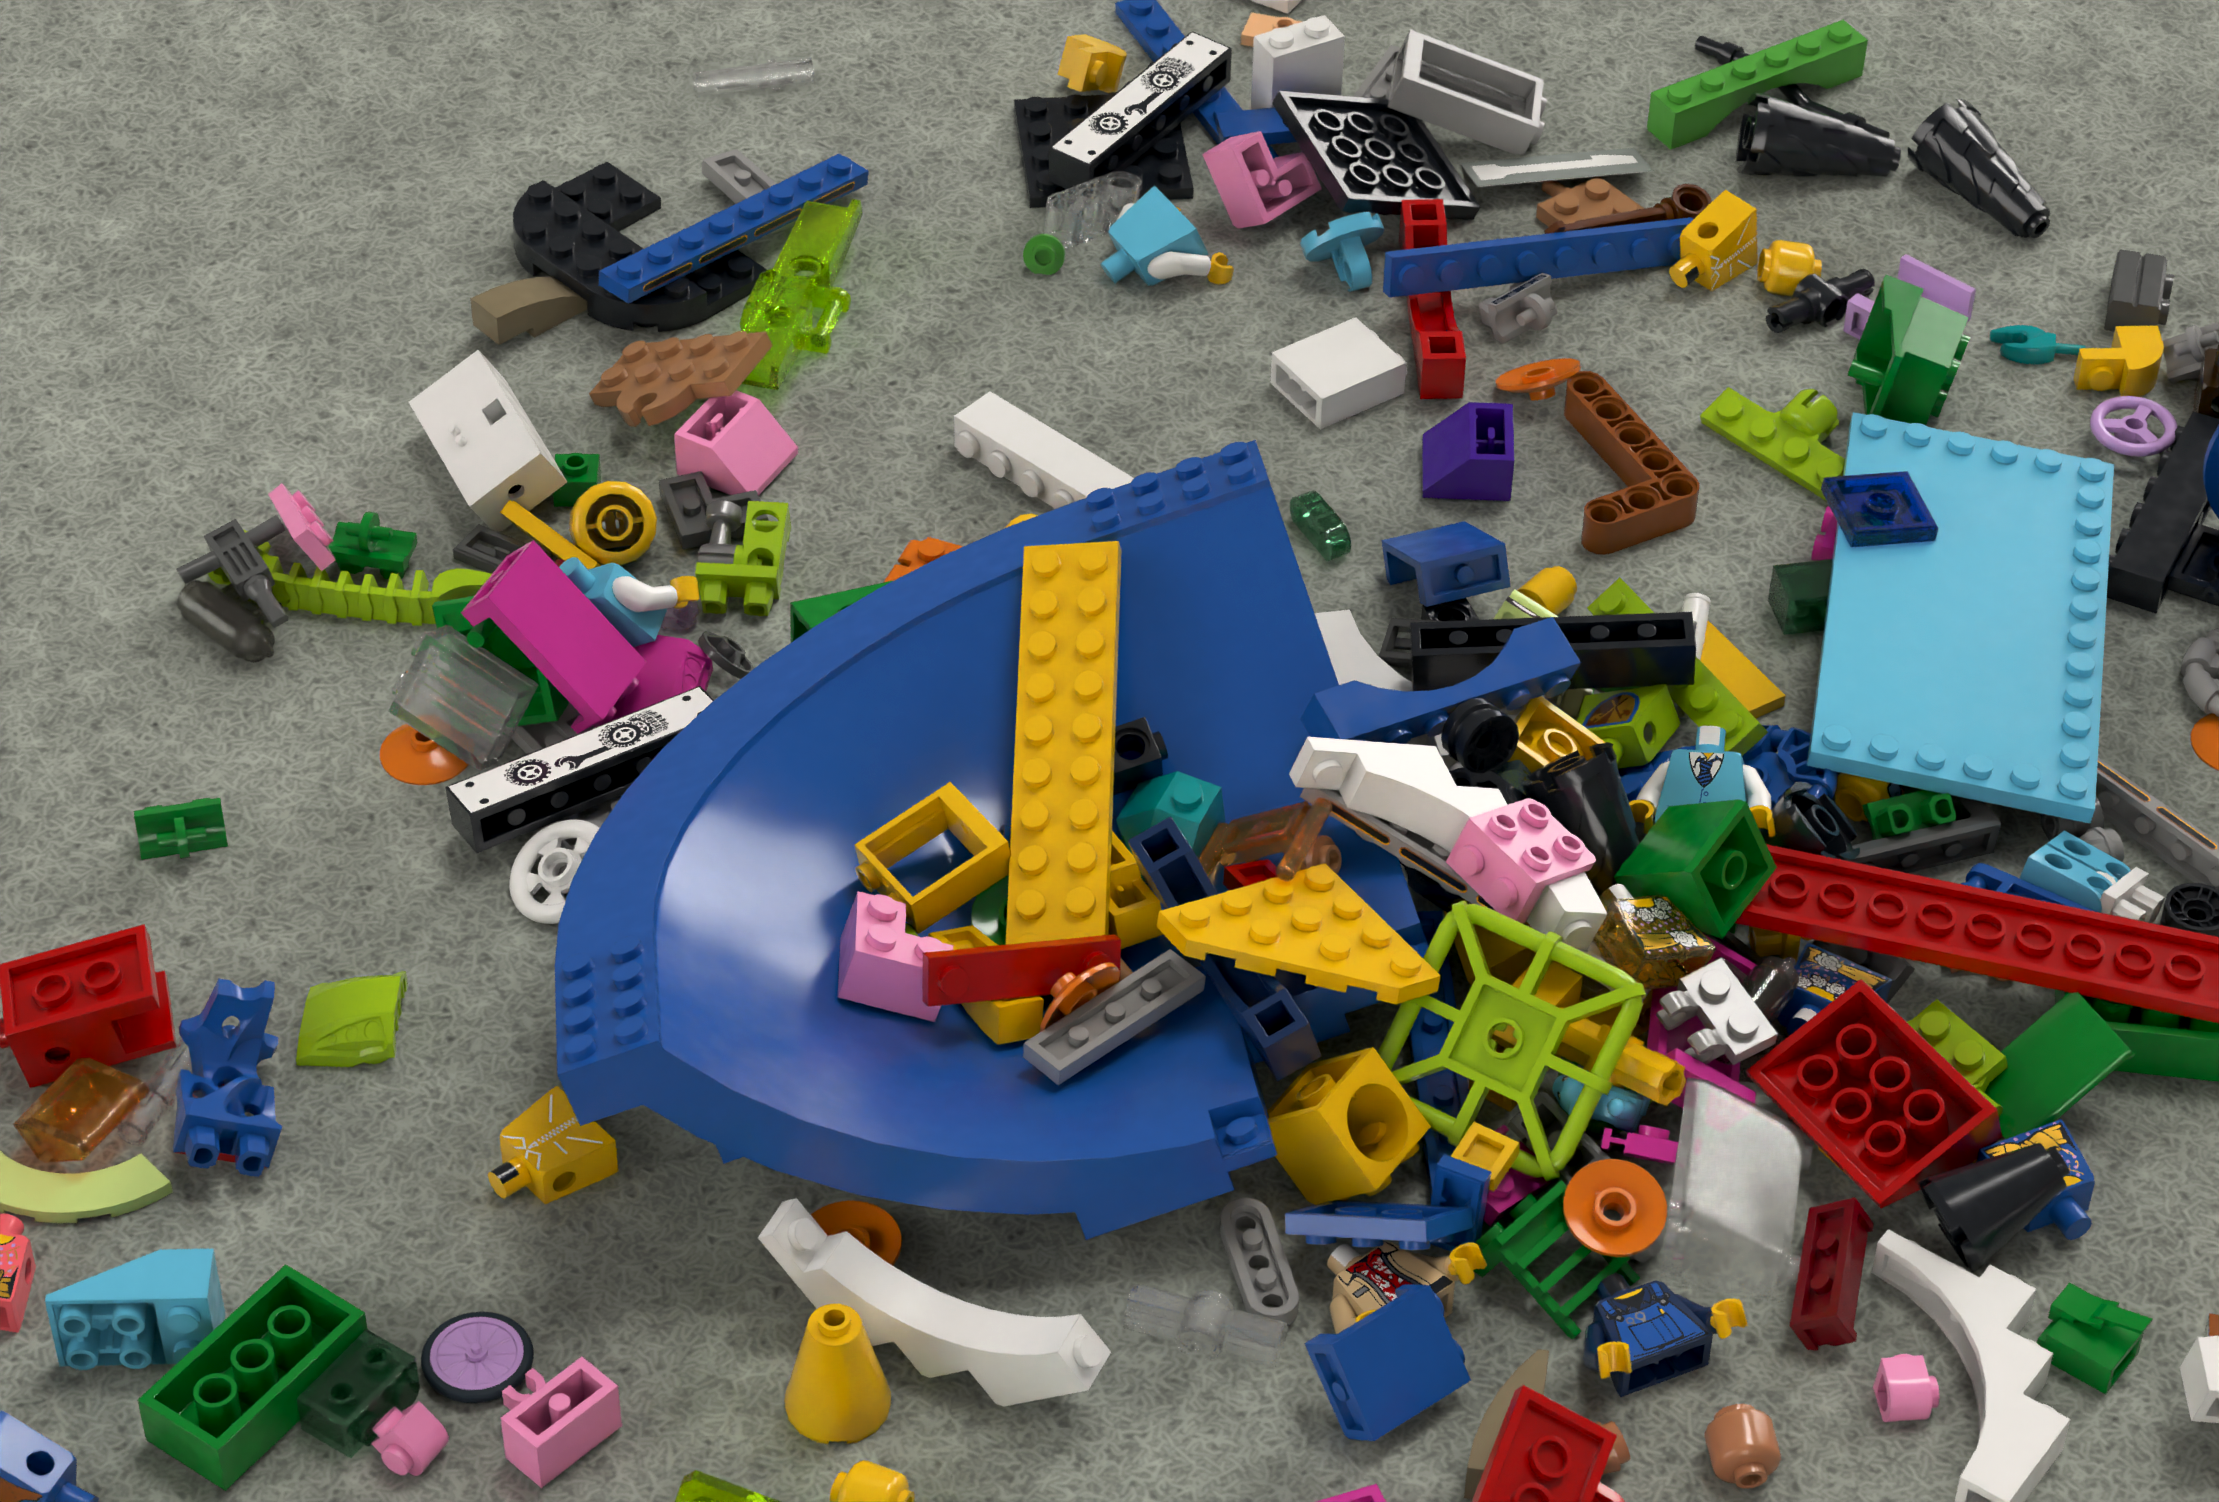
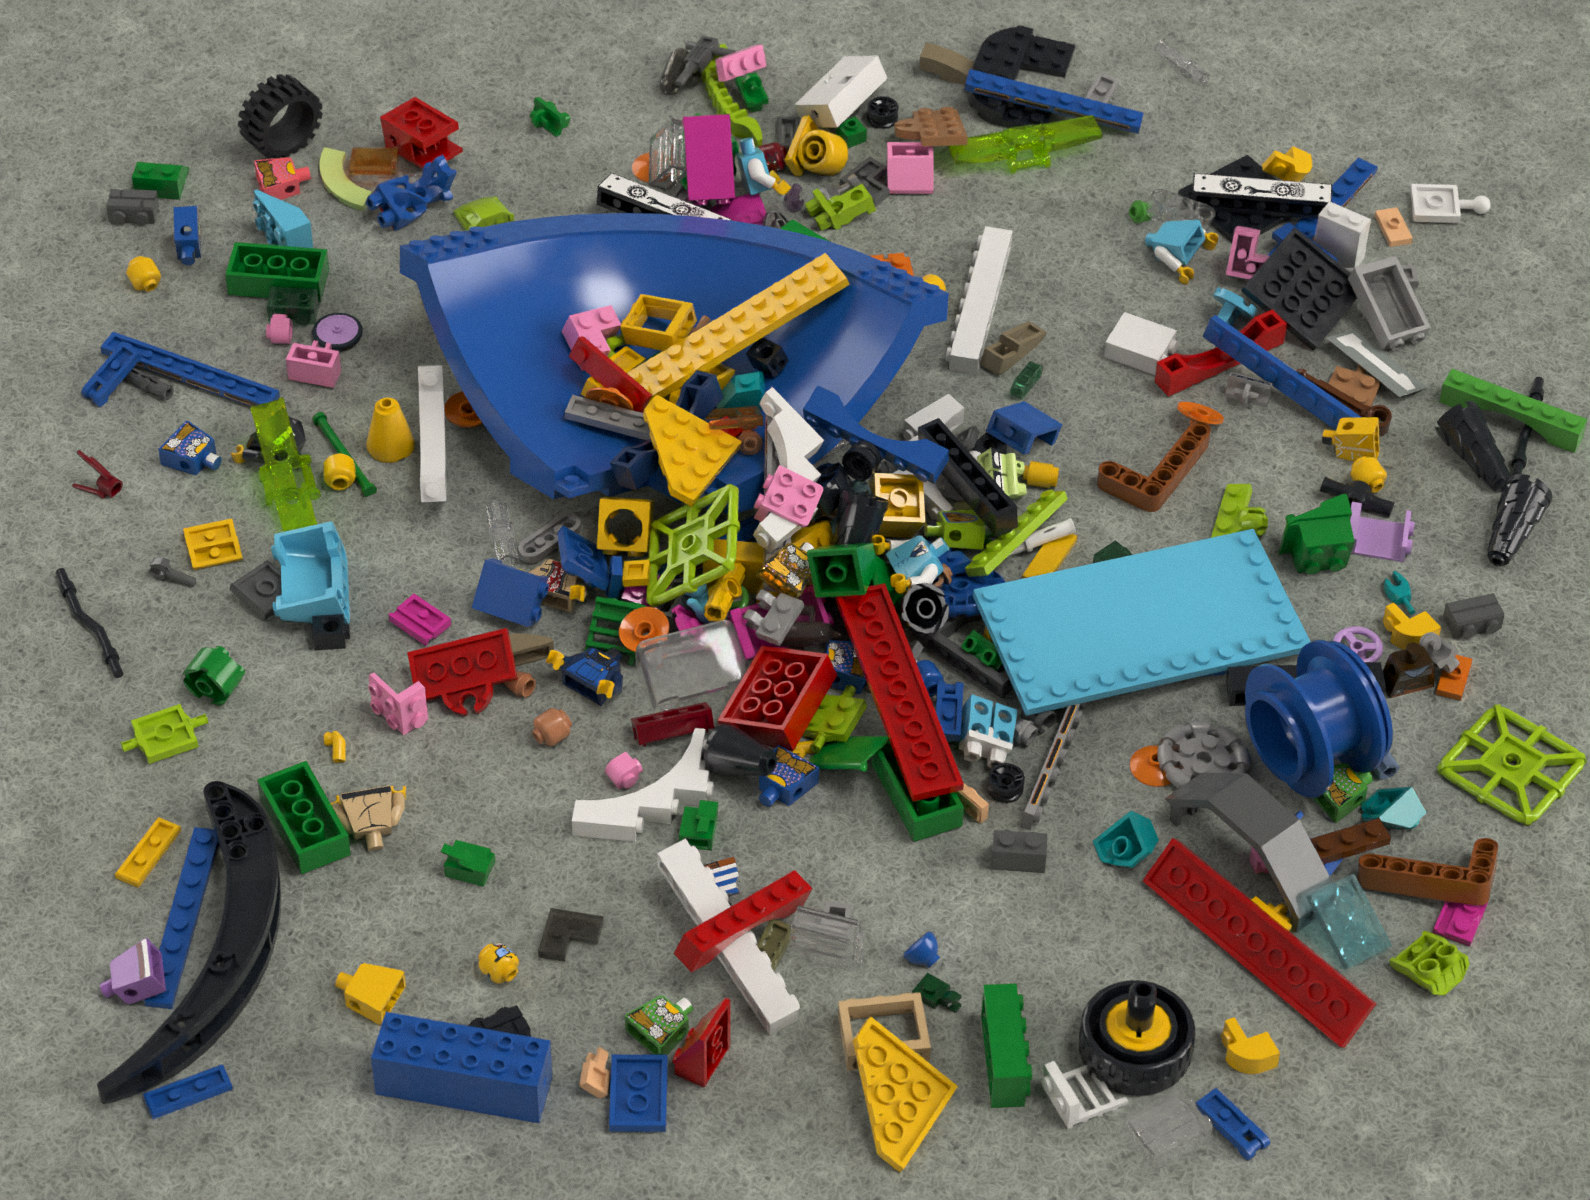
camera: 60 degrees right, 5 degrees up
(564, 423) = (882, 112): none -> black wheel
(820, 1478) = (321, 420): none -> green bar
(1470, 454) = (1119, 413): dark purple slope -> none
(1879, 509) = (1178, 559): clear blue tile -> none

